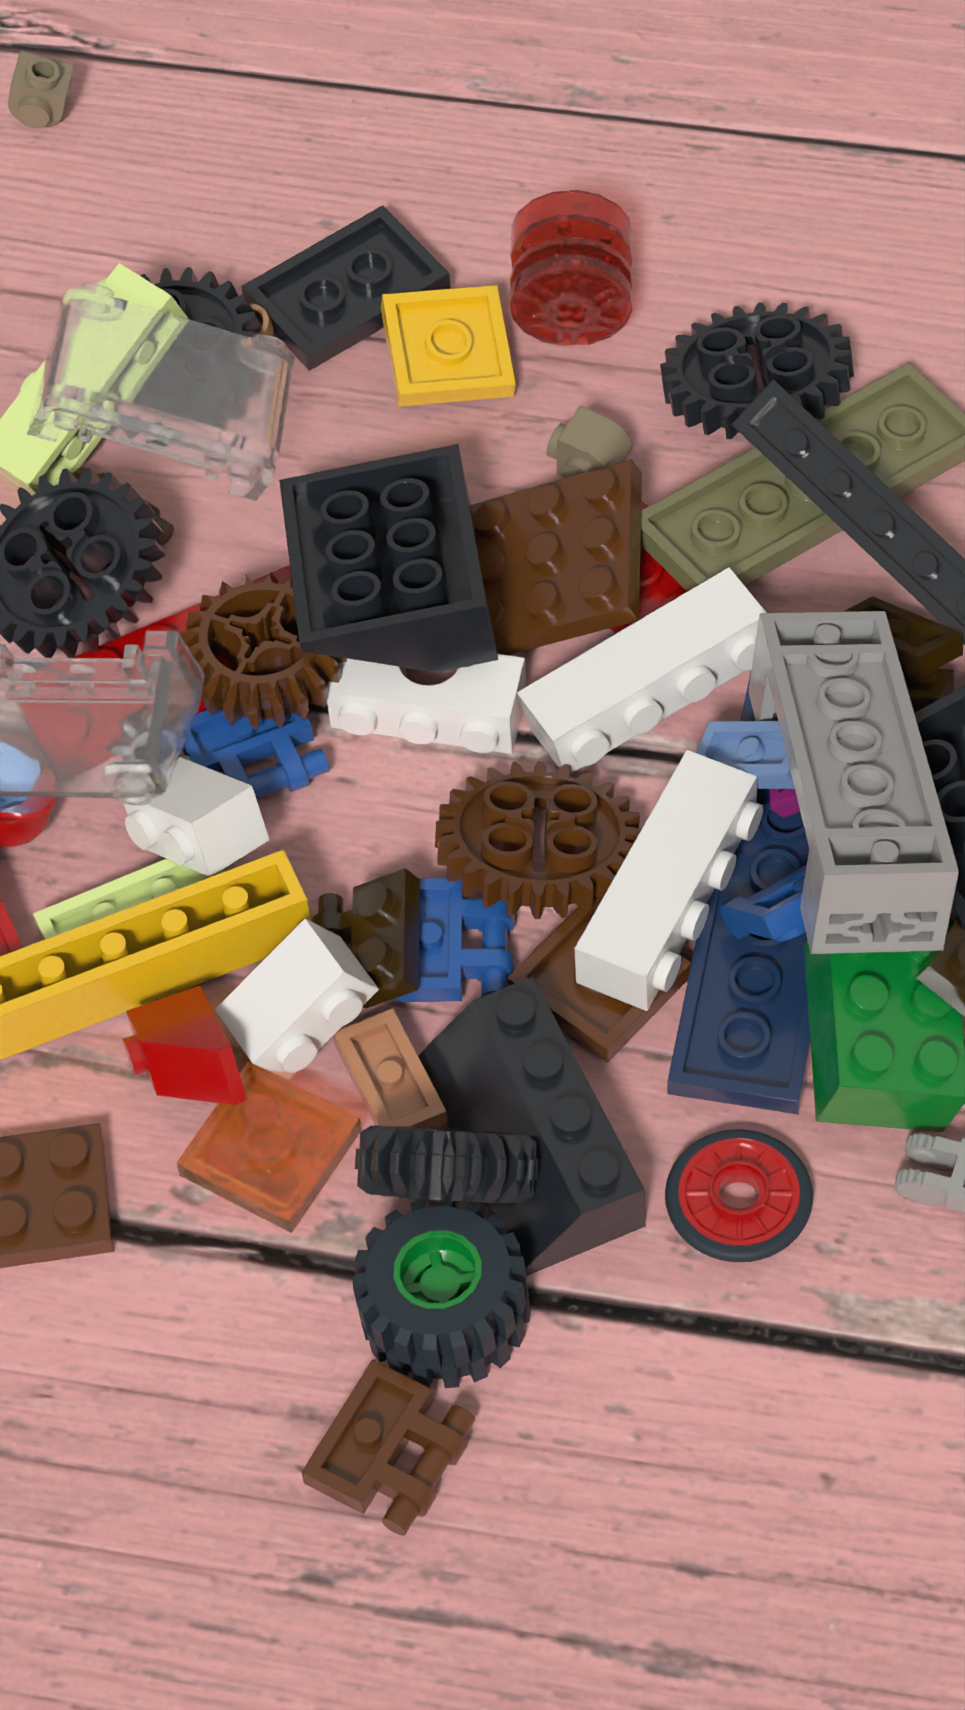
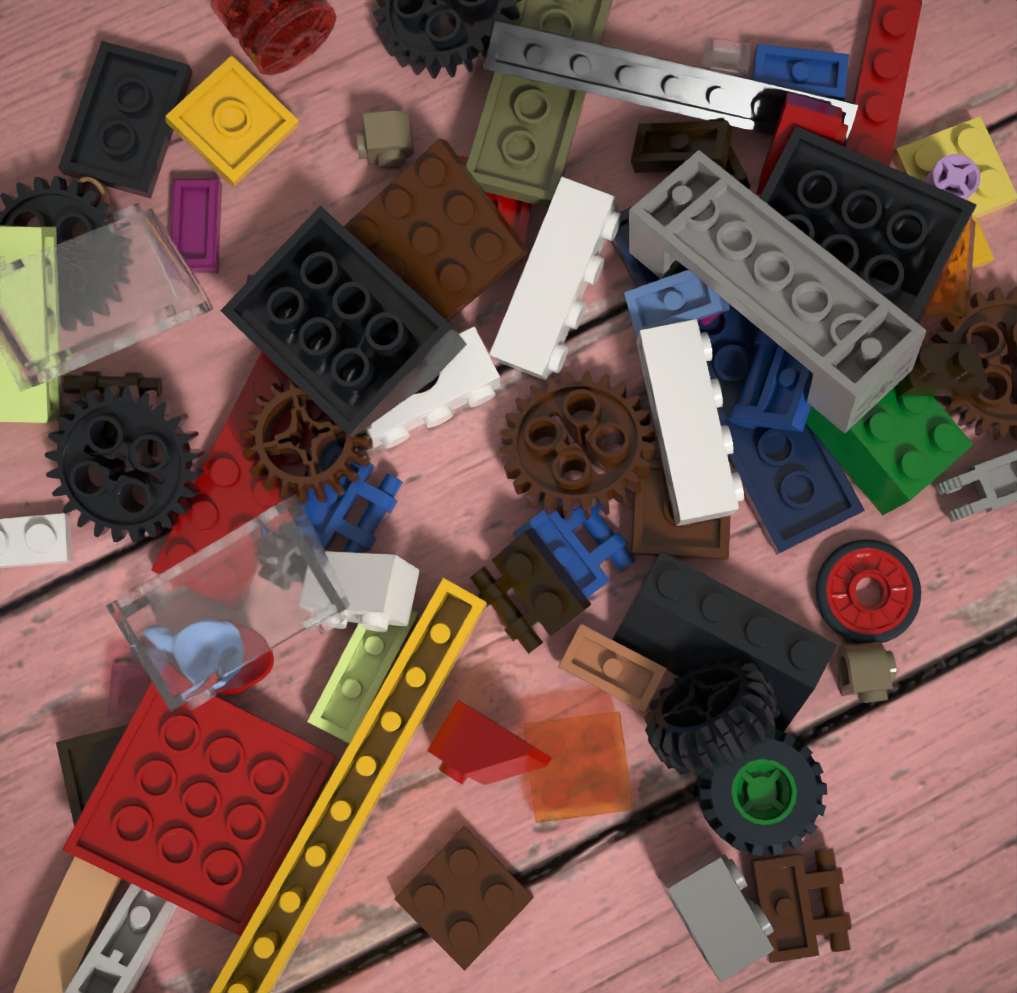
camera: 40 degrees left, 25 degrees up
(284, 1361) = (717, 916): none -> light grey brick
(296, 999) = (527, 668): white brick -> none
(333, 419) = (197, 222): none -> magenta tile
(663, 1264) = (866, 671): none -> dark tan plate

